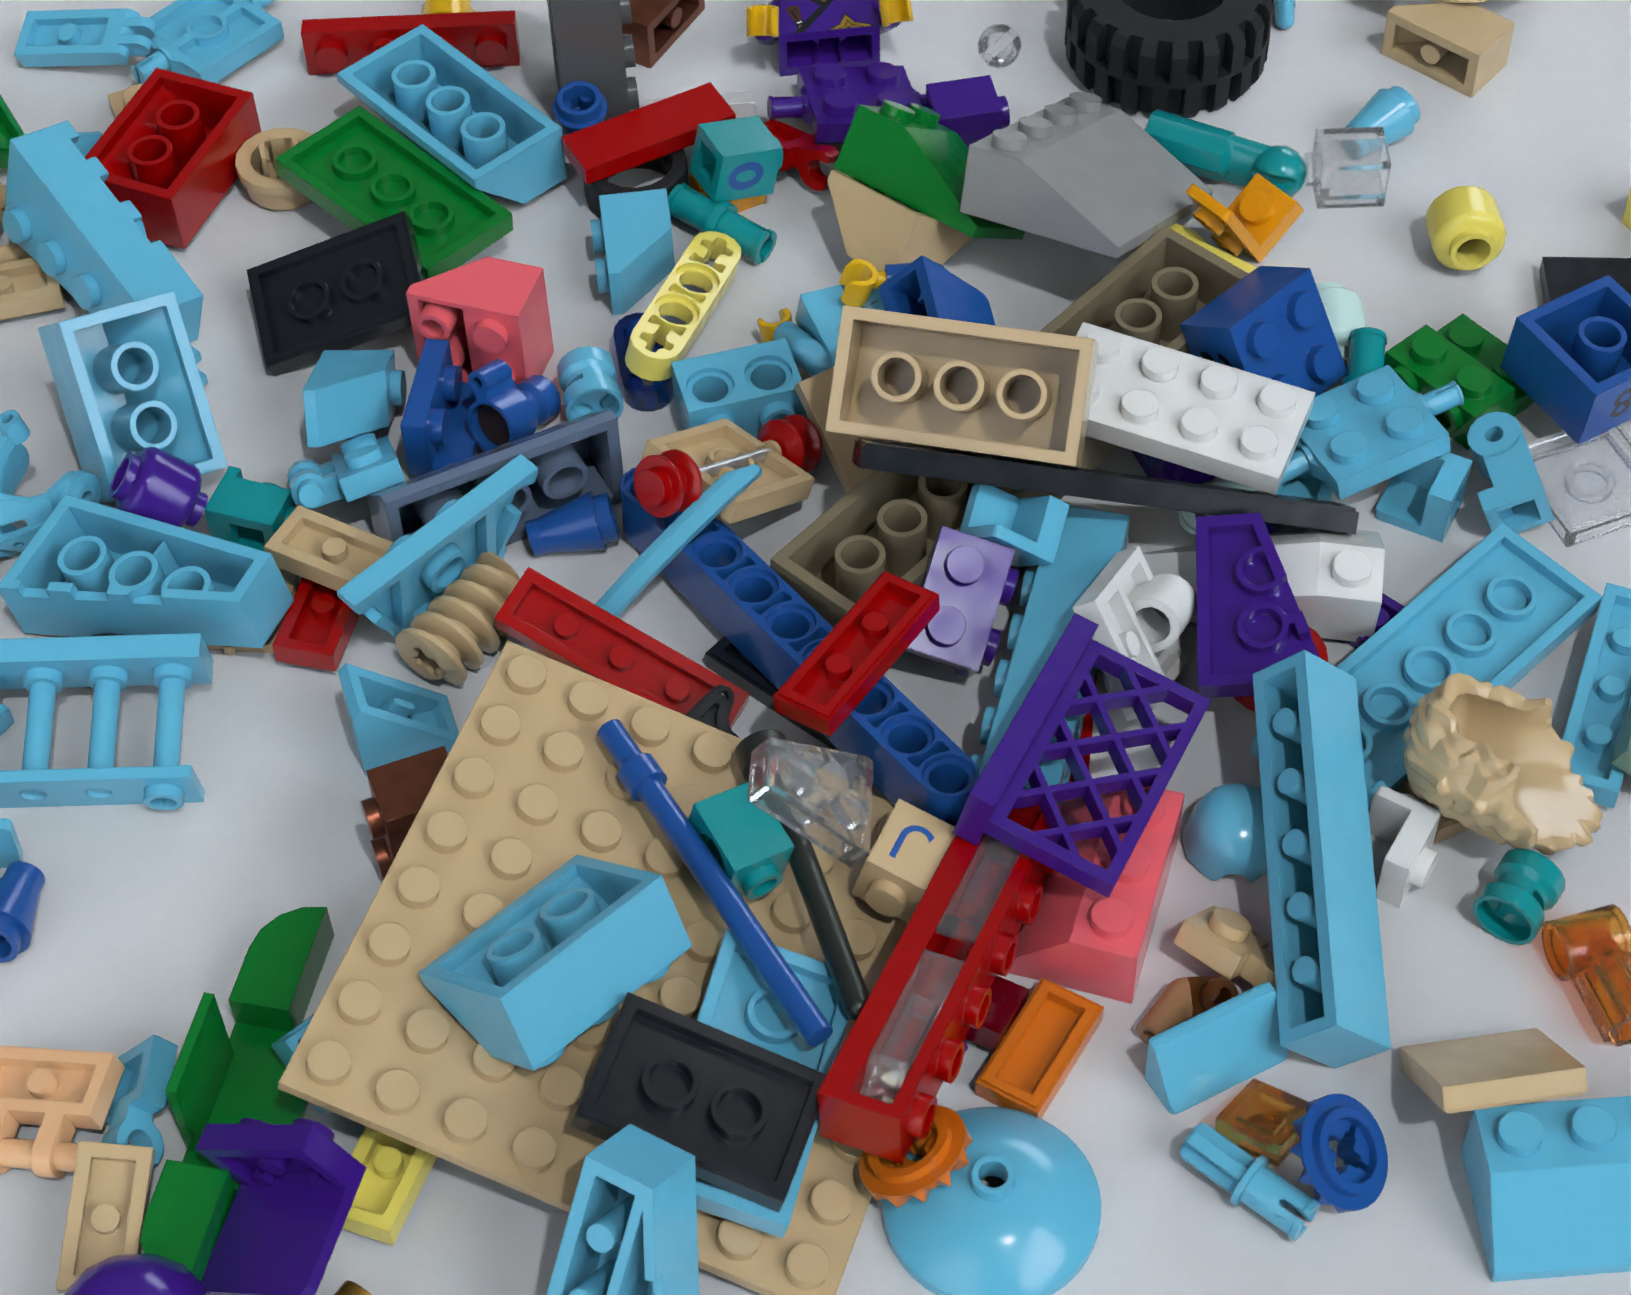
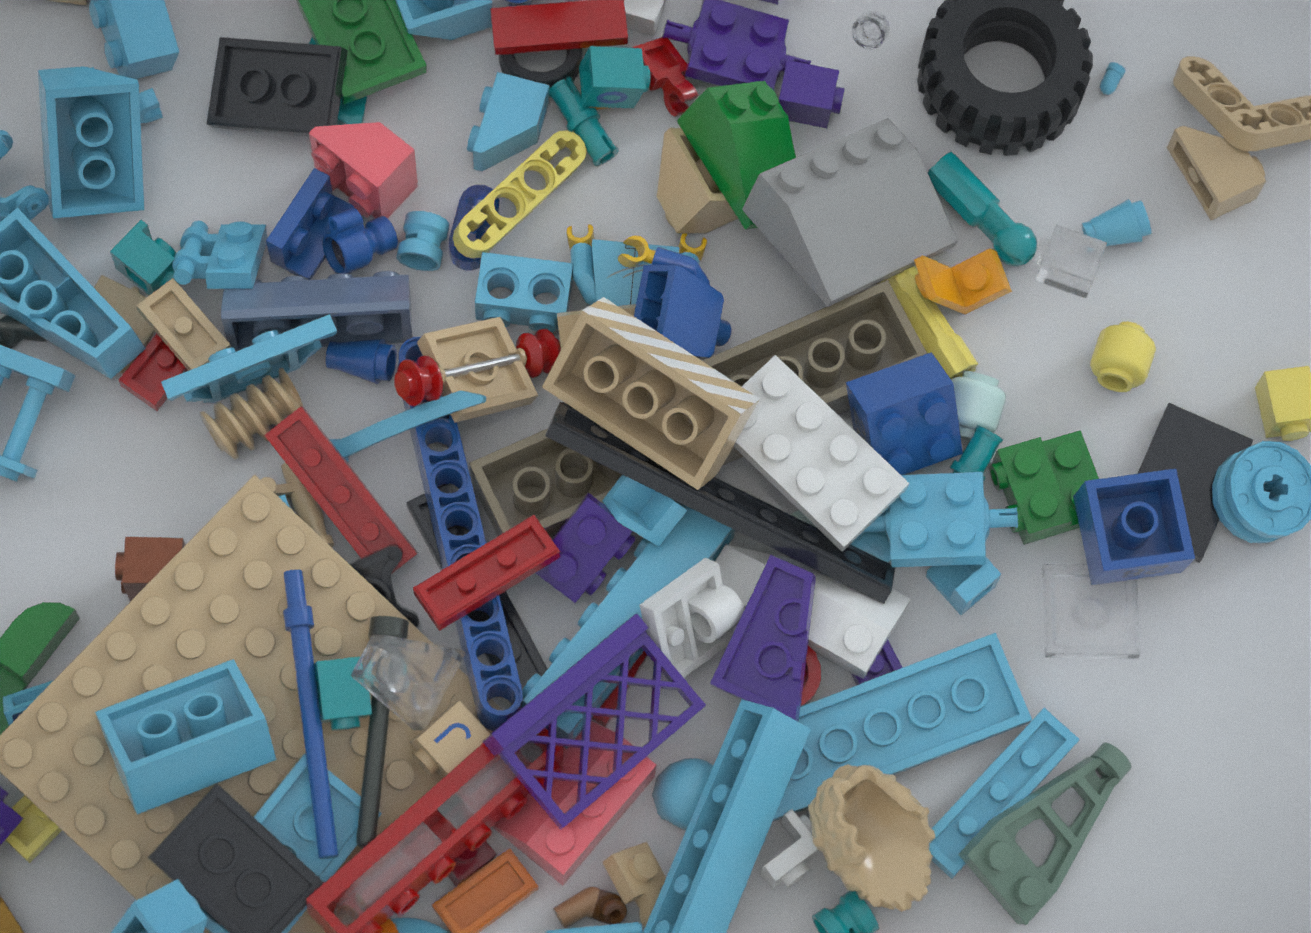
camera: 15 degrees right, 20 degrees up
(159, 488) = (81, 229): dark purple head -> none
(351, 394) = (249, 185): medium azure slope -> none
(394, 717) = (178, 474): medium azure slope -> none
(1507, 462) = (1027, 592): medium azure leg -> none

